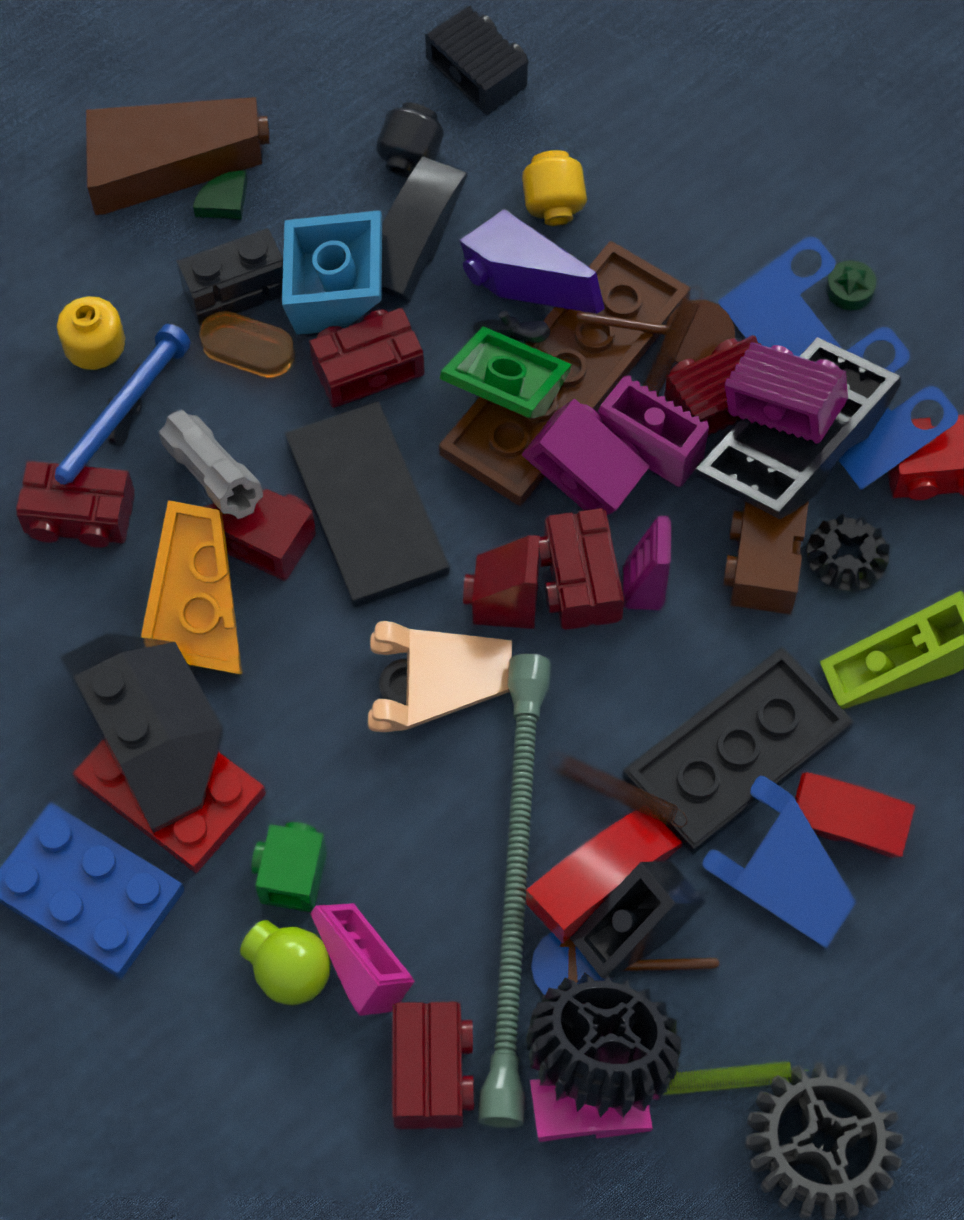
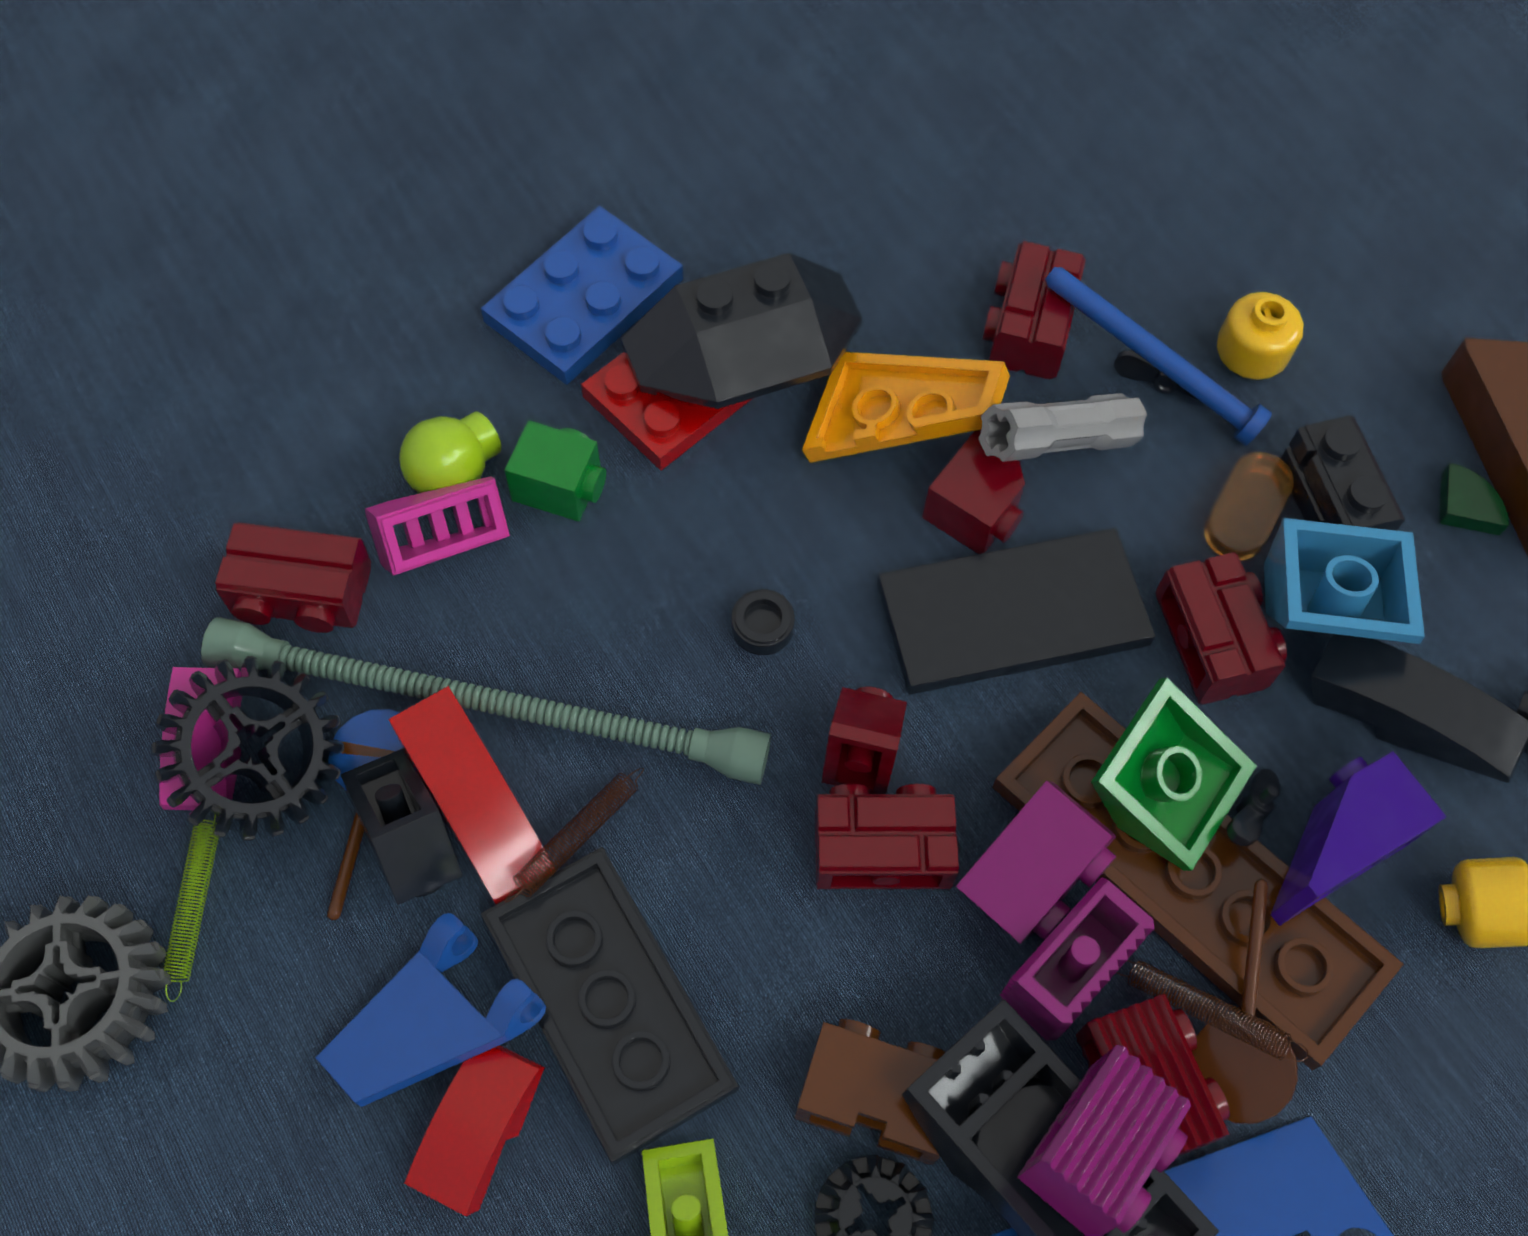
camera: 95 degrees right, 0 degrees up
(442, 674) = (764, 657): light nougat flag -> none
(648, 568) = (866, 924): magenta slope -> none

